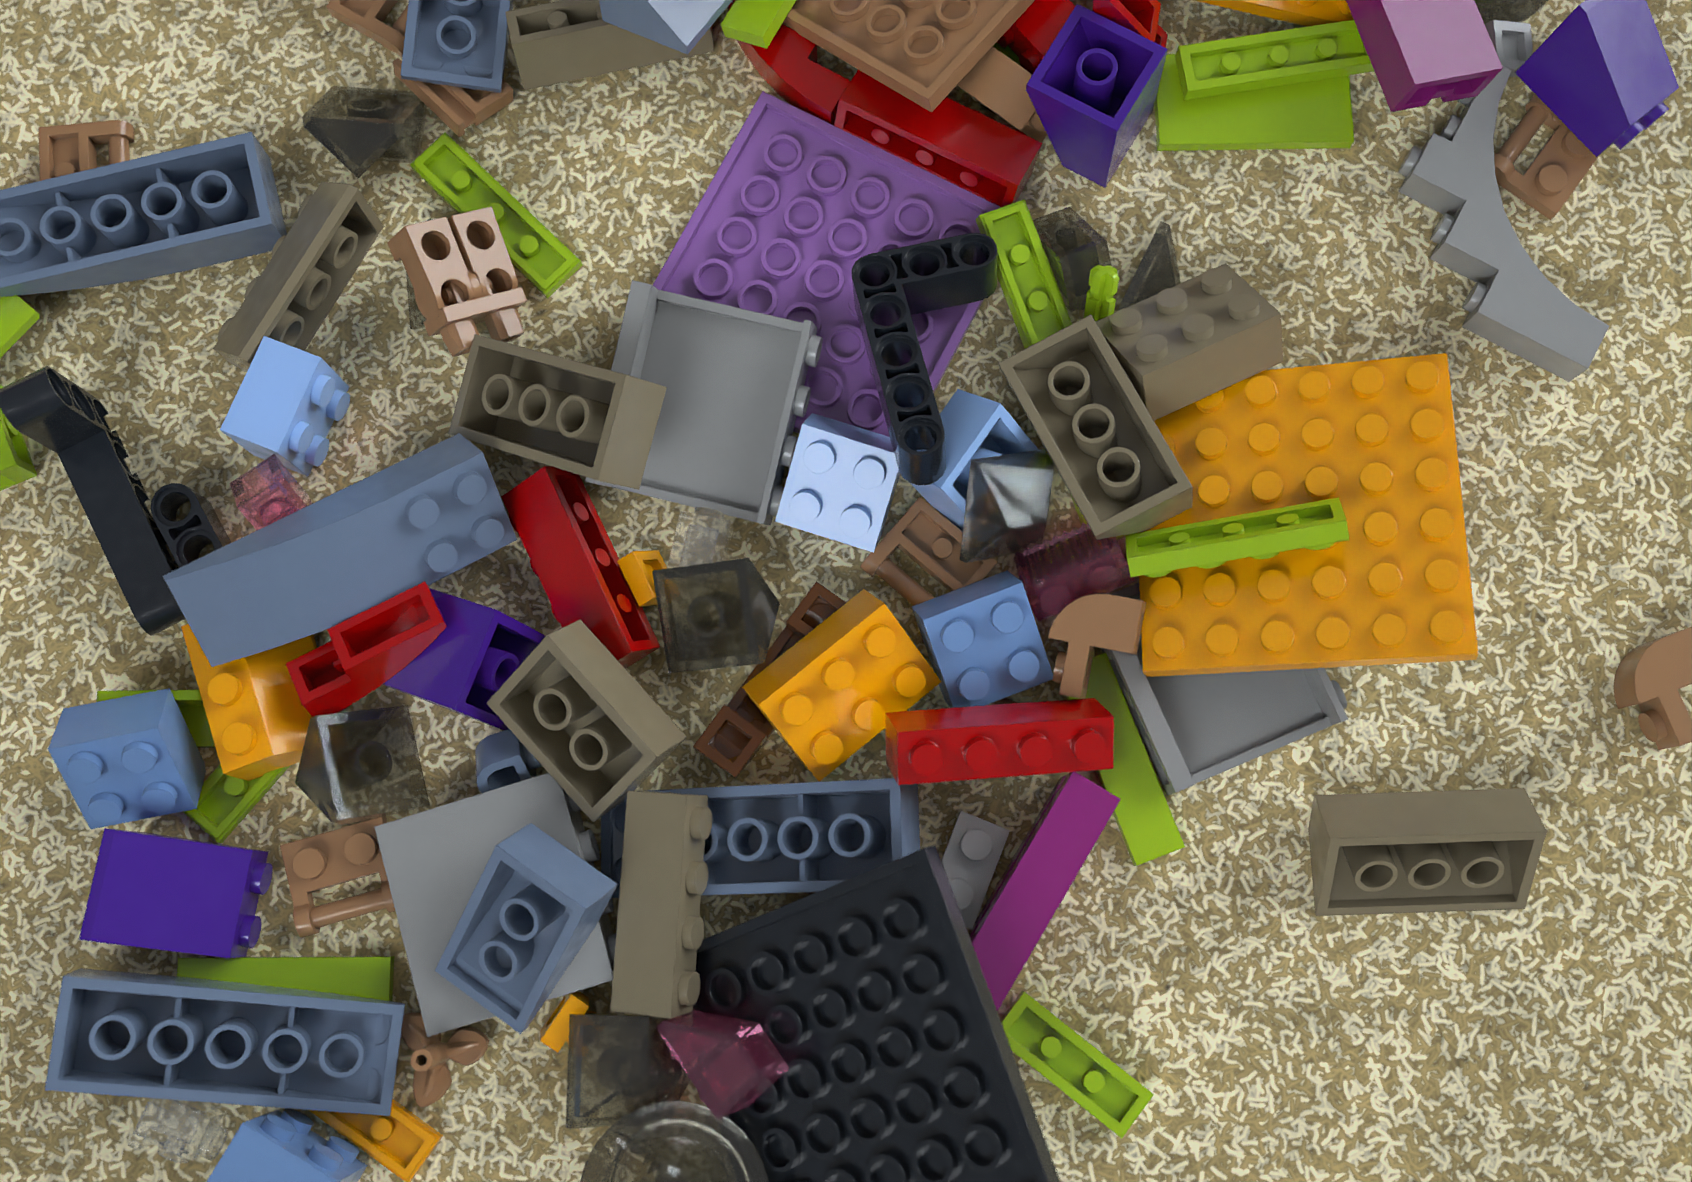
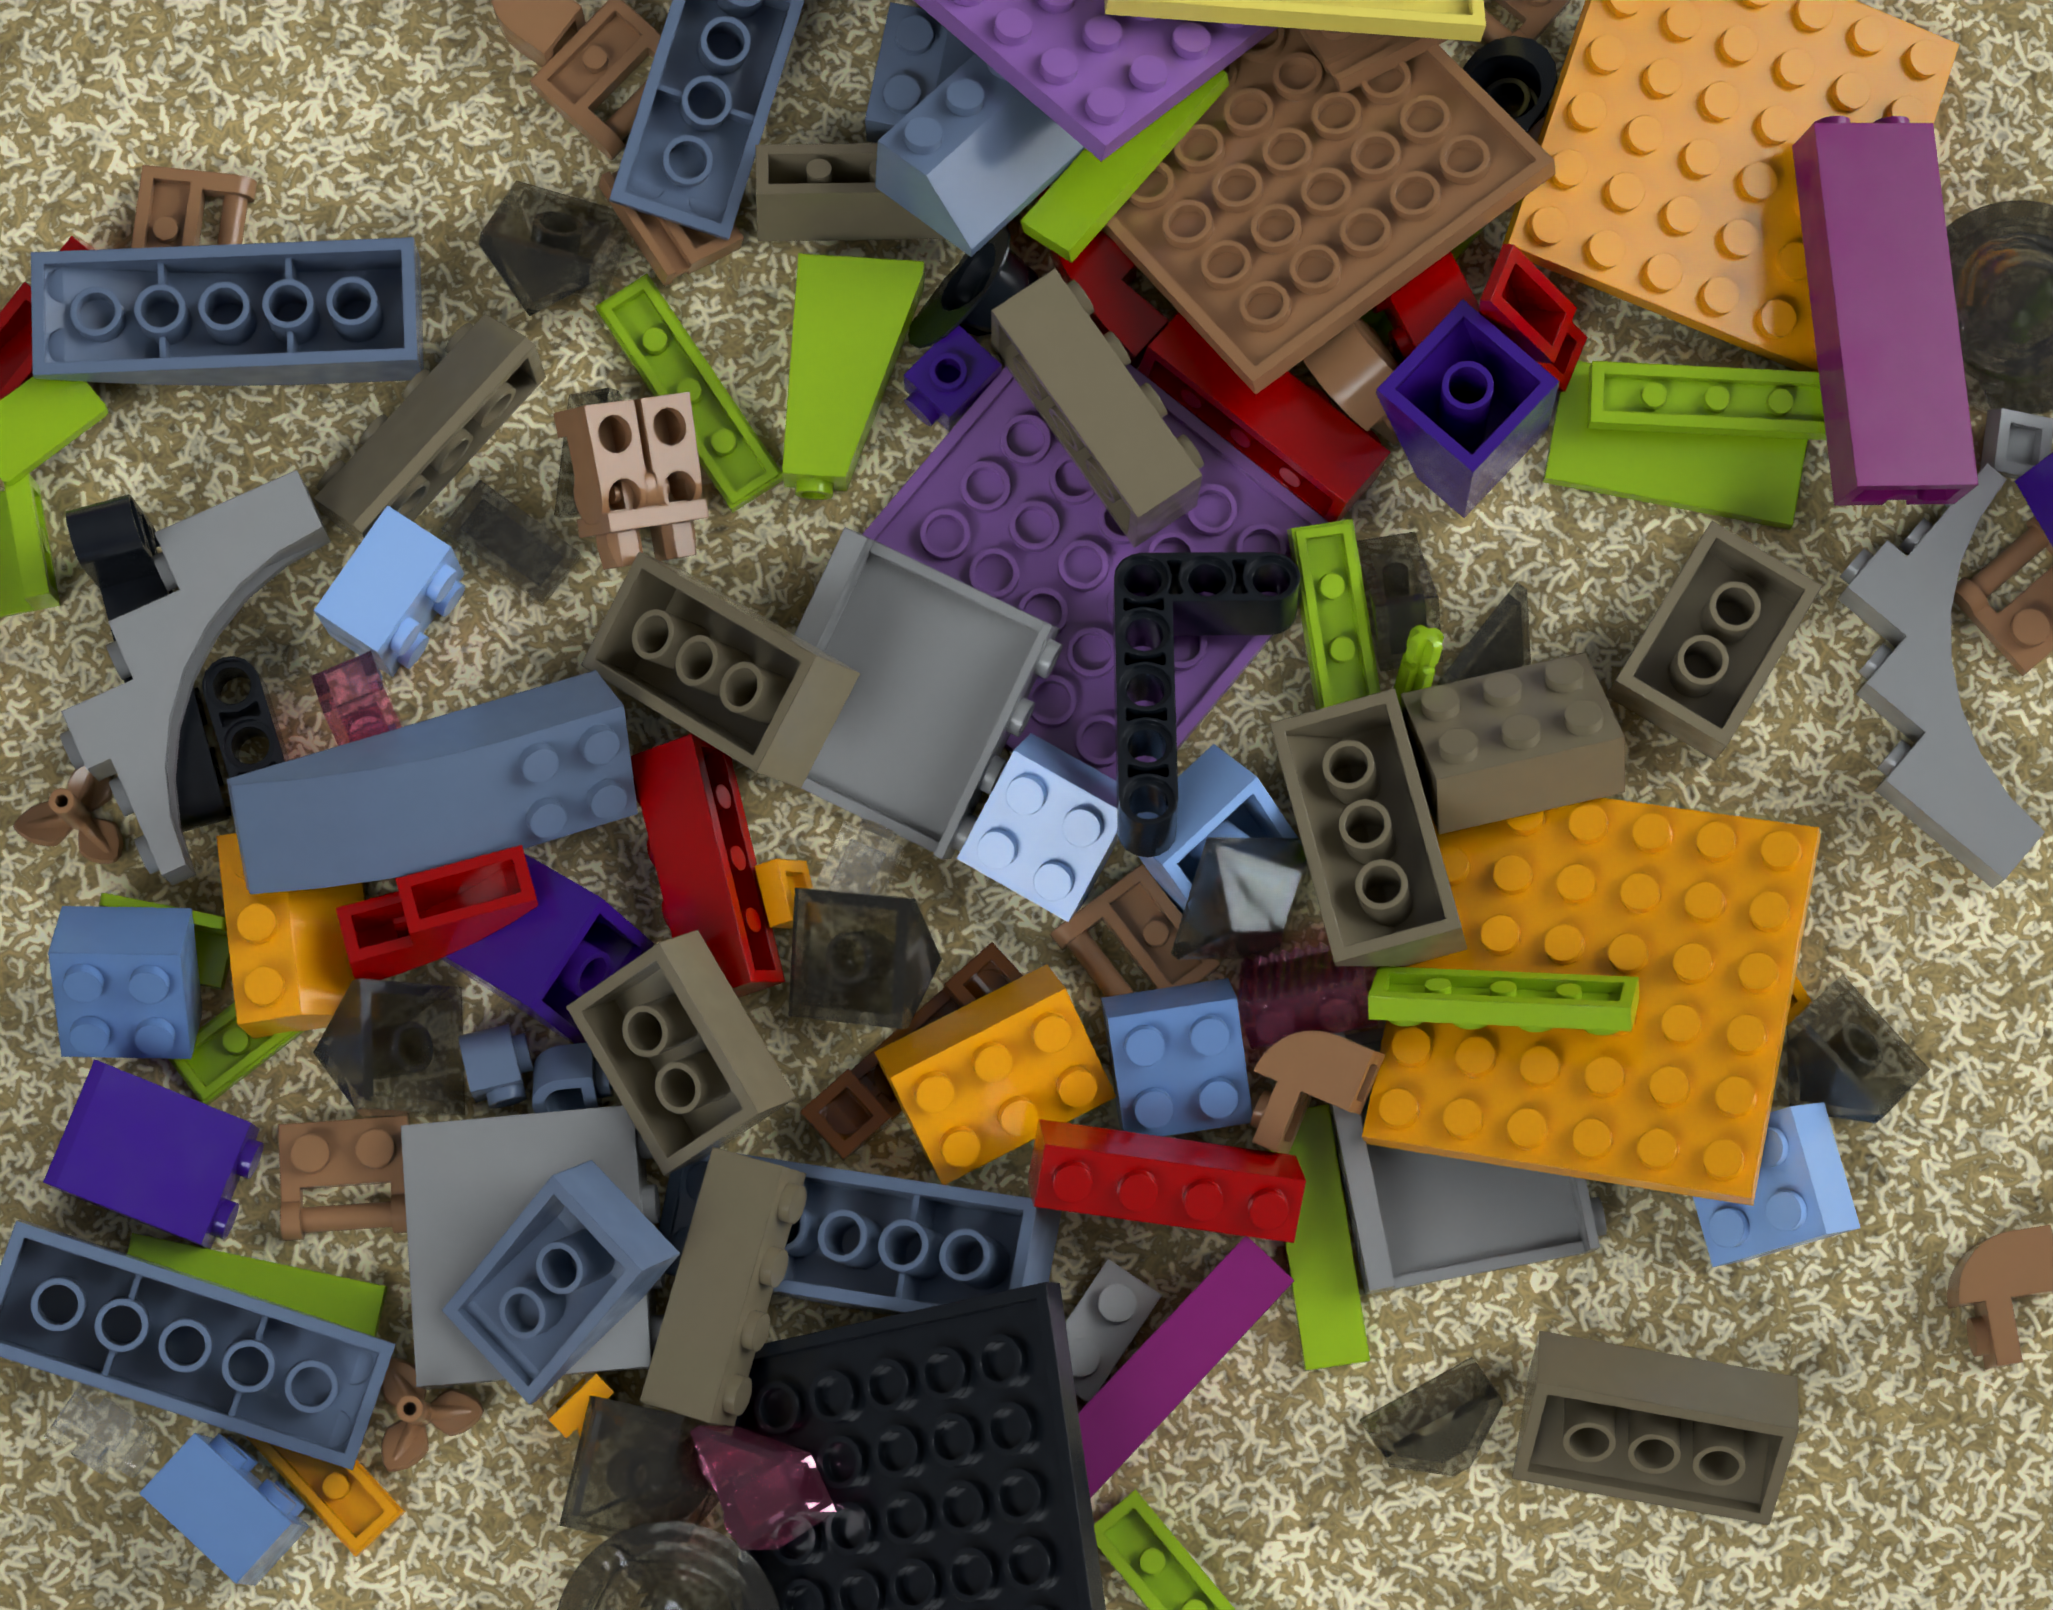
camera: 10 degrees right, 0 degrees up
(62, 636) = (72, 809): none -> medium nougat plant
(109, 487) = (135, 727): none -> light grey arch
(380, 354) = (511, 542): none -> clear smoke tile
(444, 761) = (496, 1065): none -> sand blue plate
(607, 160) = (843, 352): none -> lime slope
(691, 160) = (949, 379): none -> dark purple brick
(704, 93) = (972, 292): none -> black piece
(809, 149) = (1097, 406): none -> dark tan brick
(1248, 884) = (1438, 1423): none -> clear smoke slope
(1321, 235) = (1714, 641): none -> dark tan brick
(1503, 533) = (1847, 1057): none -> clear smoke slope
(1505, 650) = (1797, 1196): none -> light blue brick

